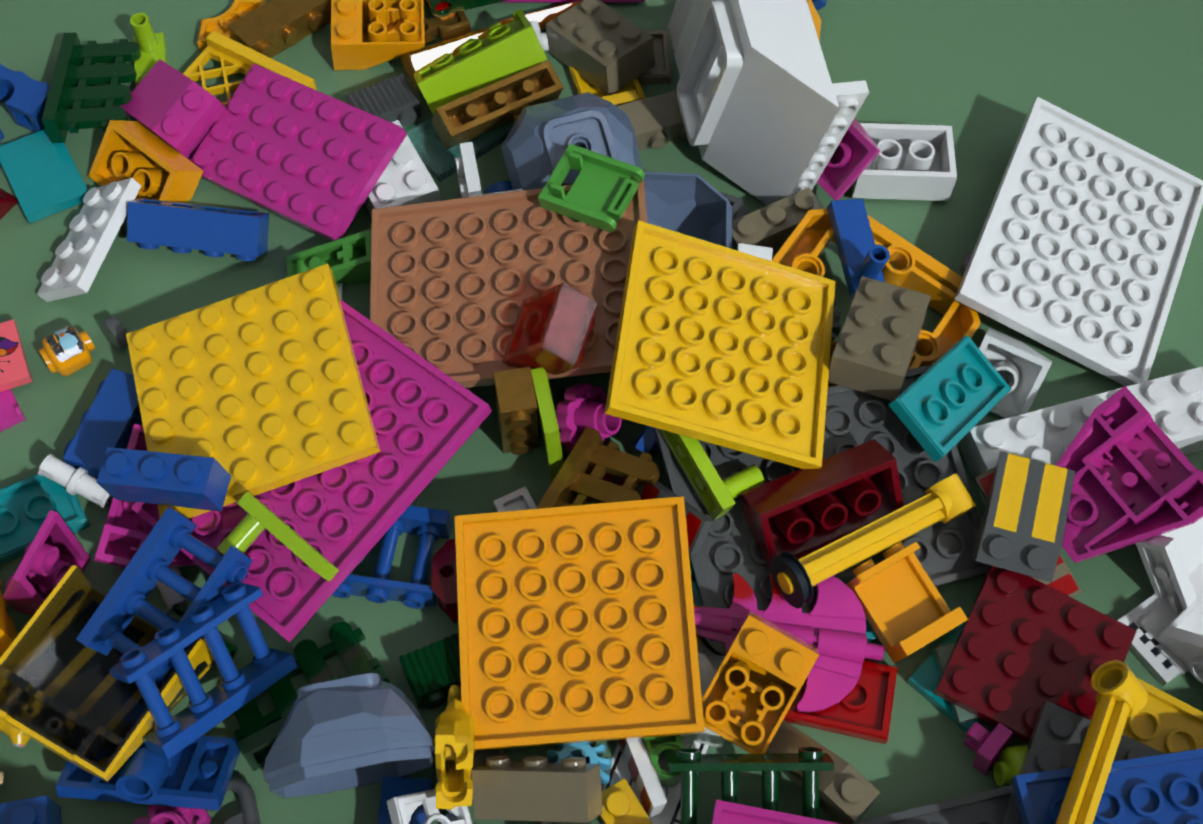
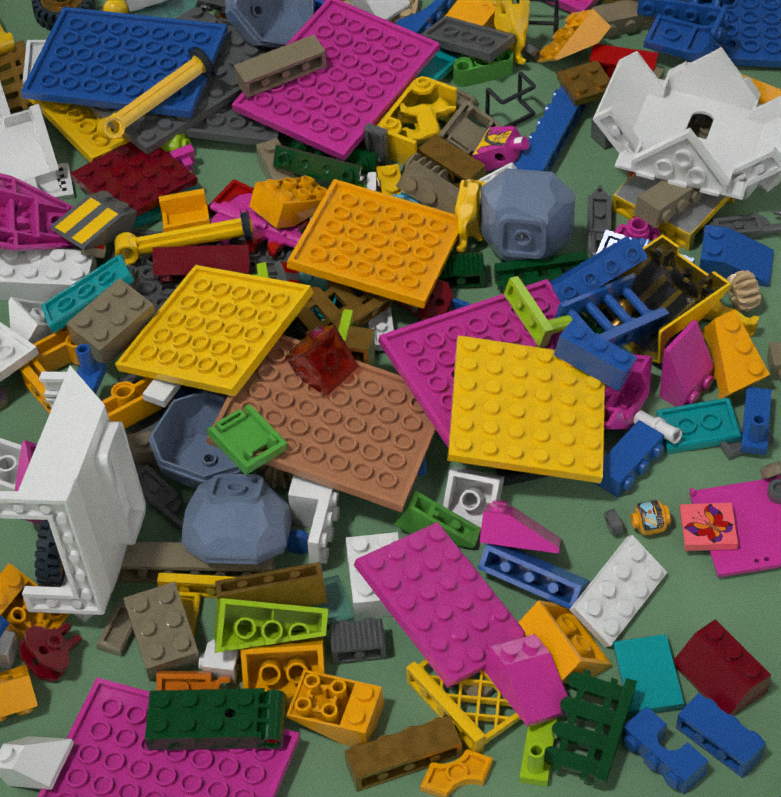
camera: 155 degrees left, 10 degrees down
(223, 262) = (512, 528): none -> dark pink slope

